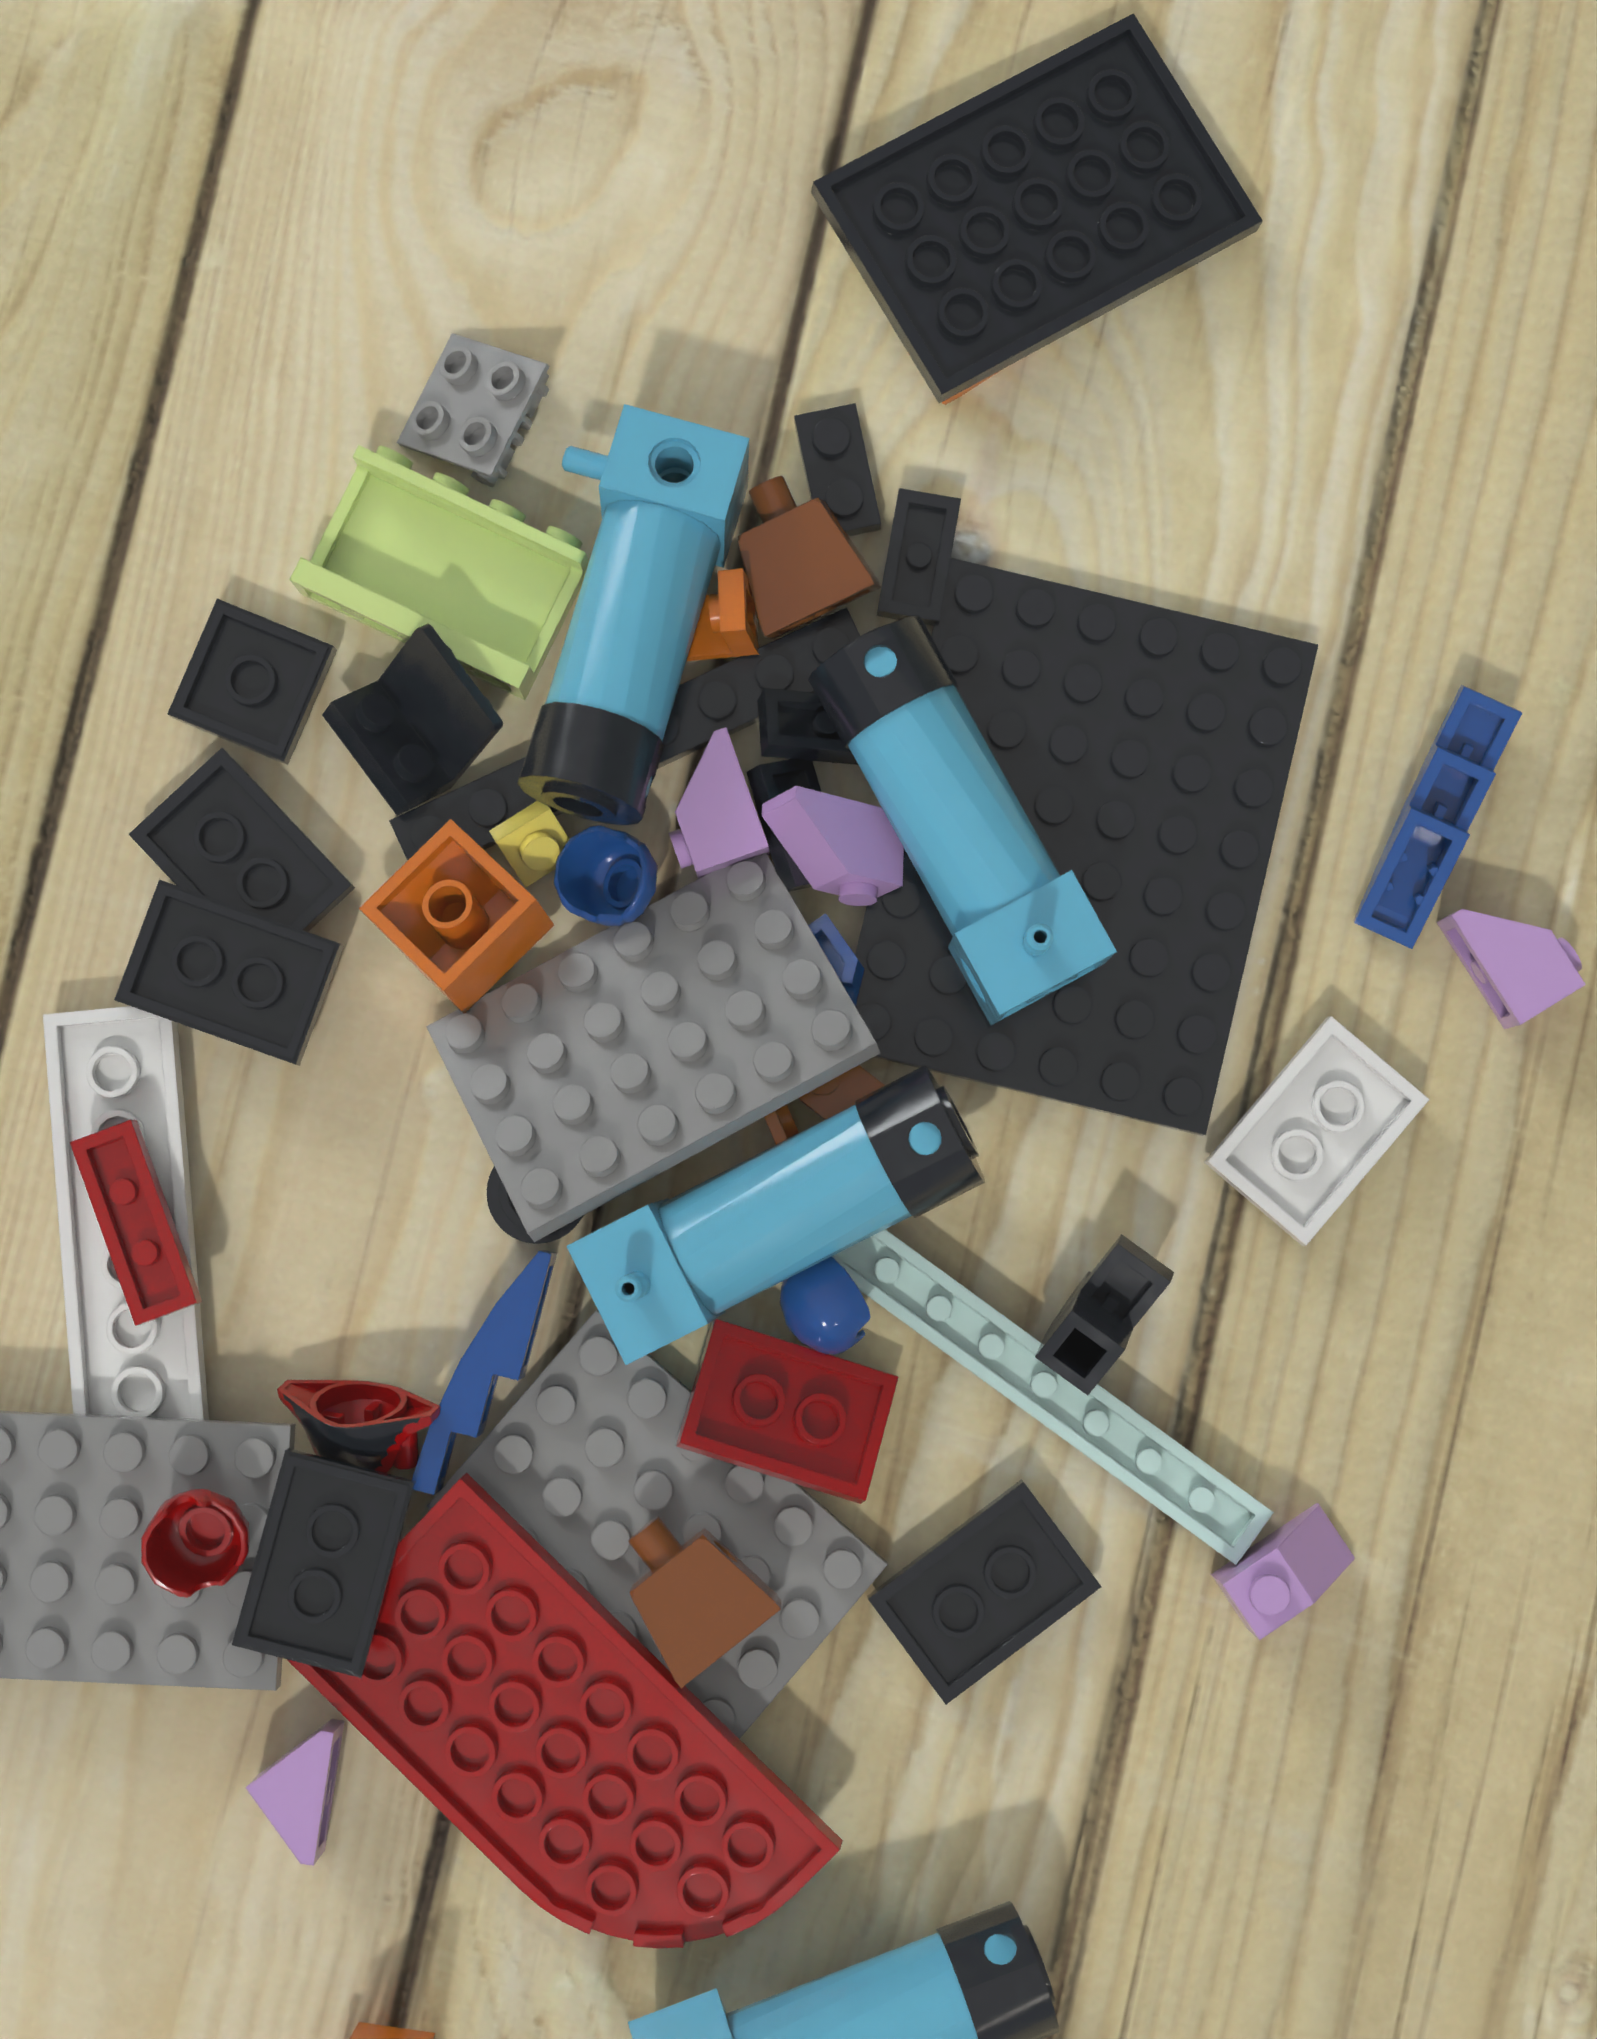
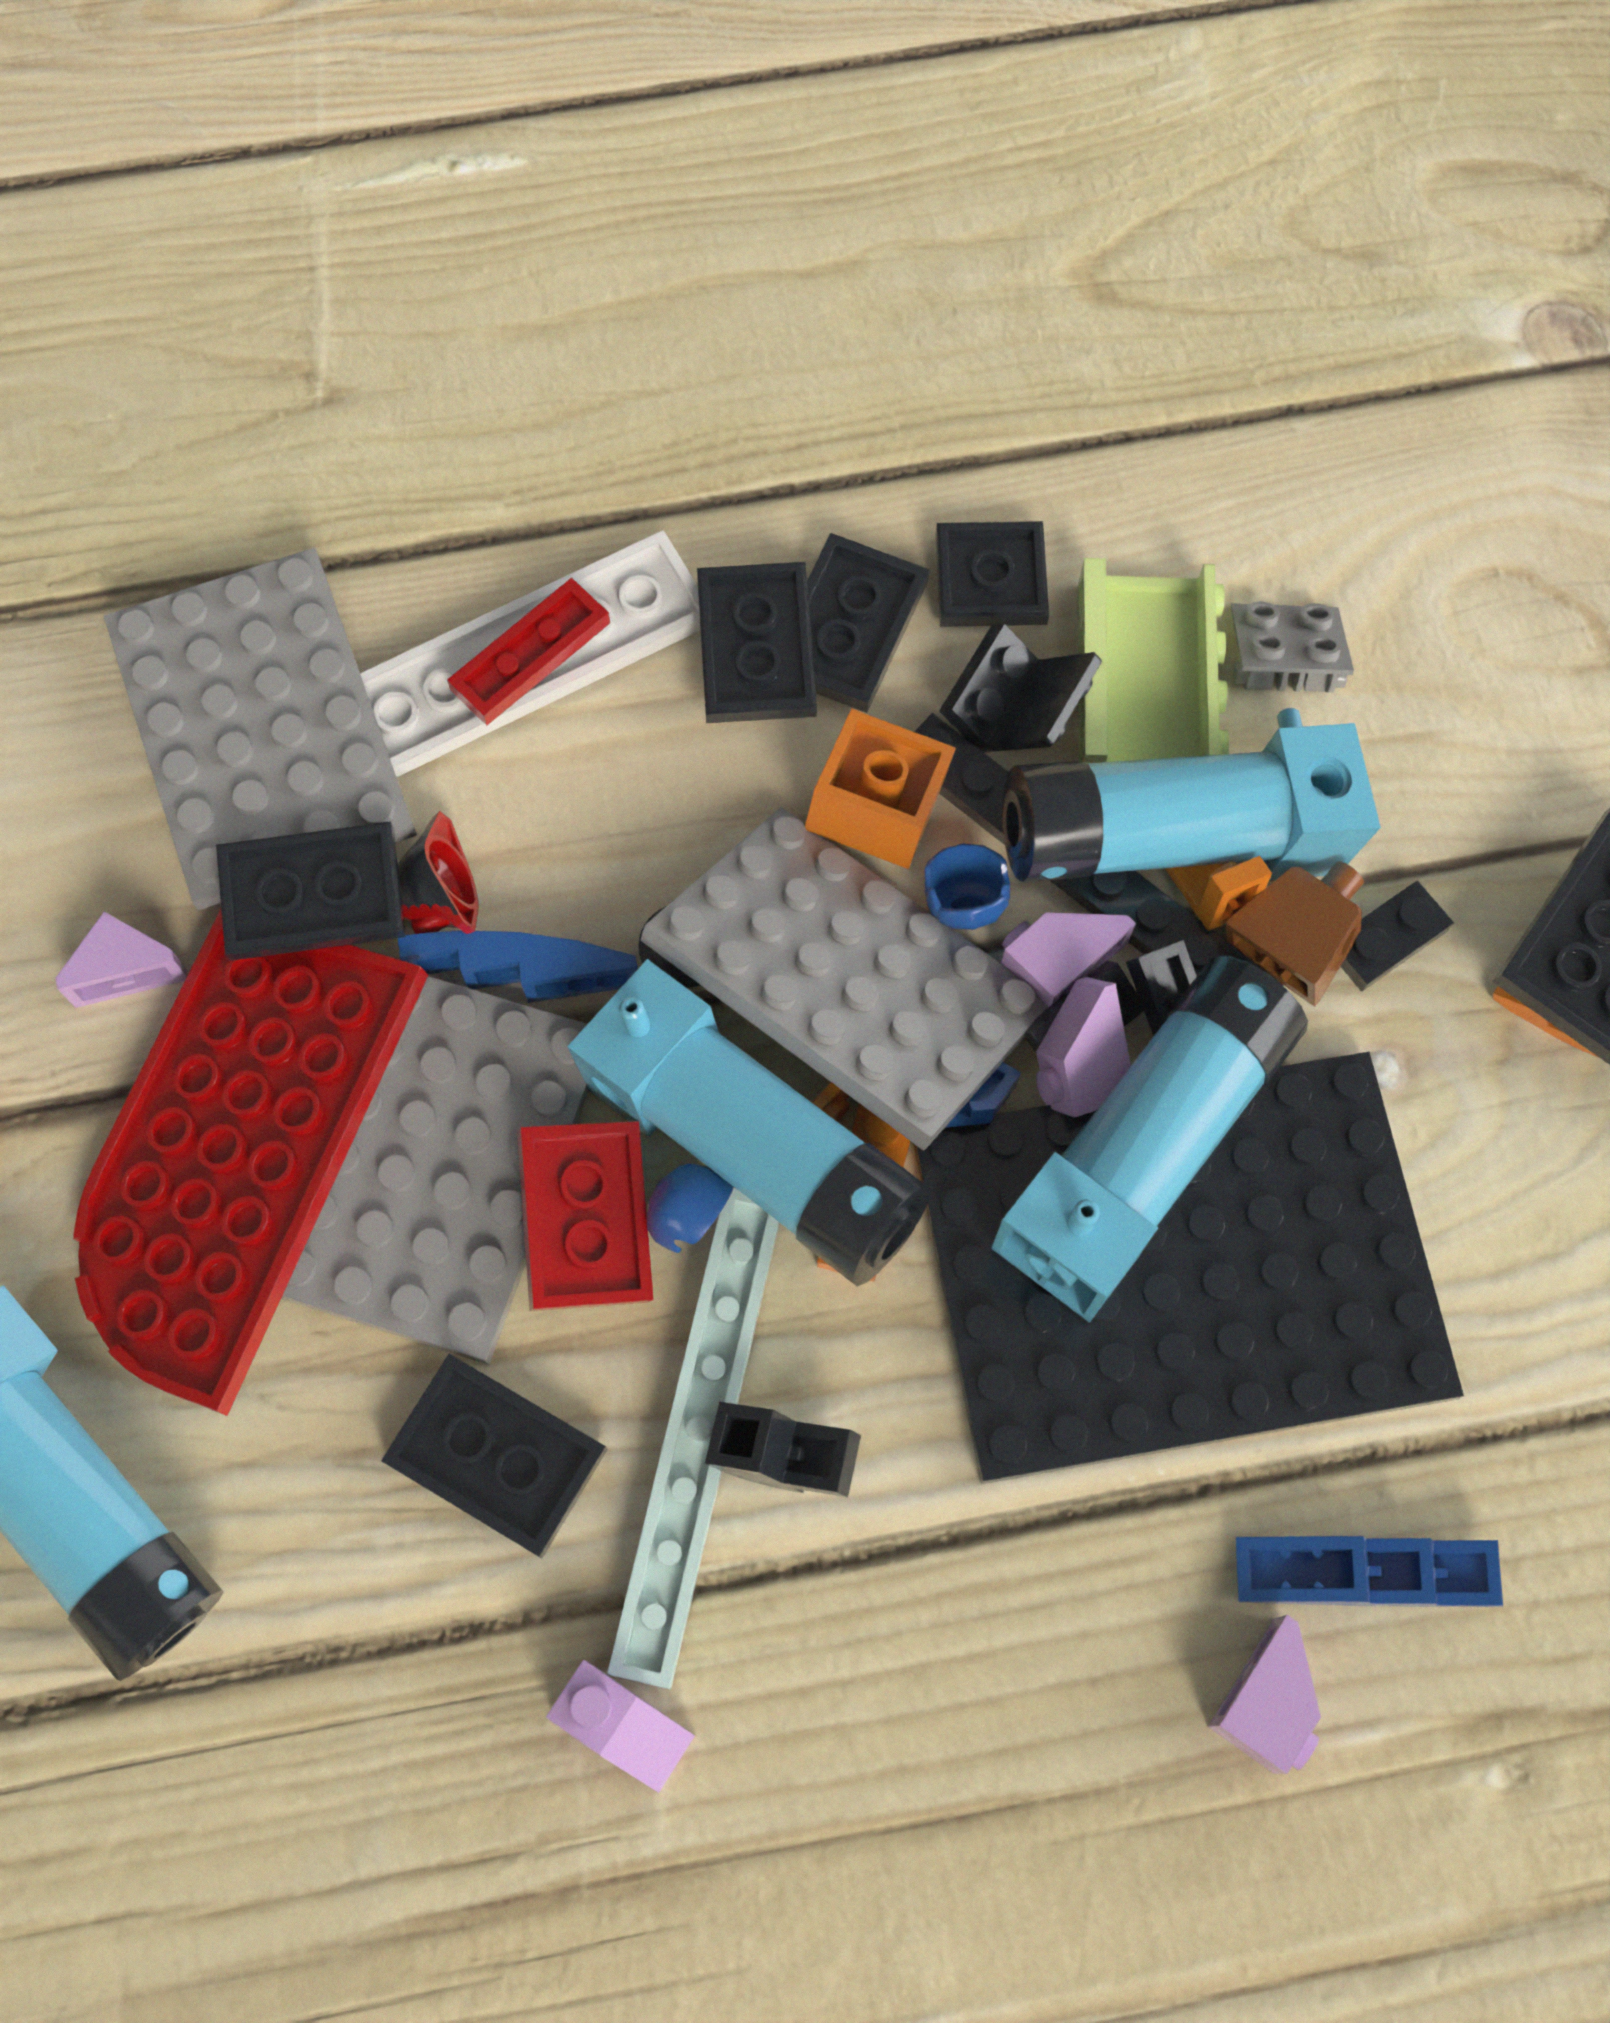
camera: 65 degrees right, 15 degrees down
(195, 1542) = (288, 779): red hair -> none
(531, 842) = (966, 820): light yellow plate -> none
(696, 1598) = (392, 1199): dark orange torso -> none
(918, 556) = (1359, 1025): black plate -> none
(1316, 1131) = (1033, 1582): white plate -> none

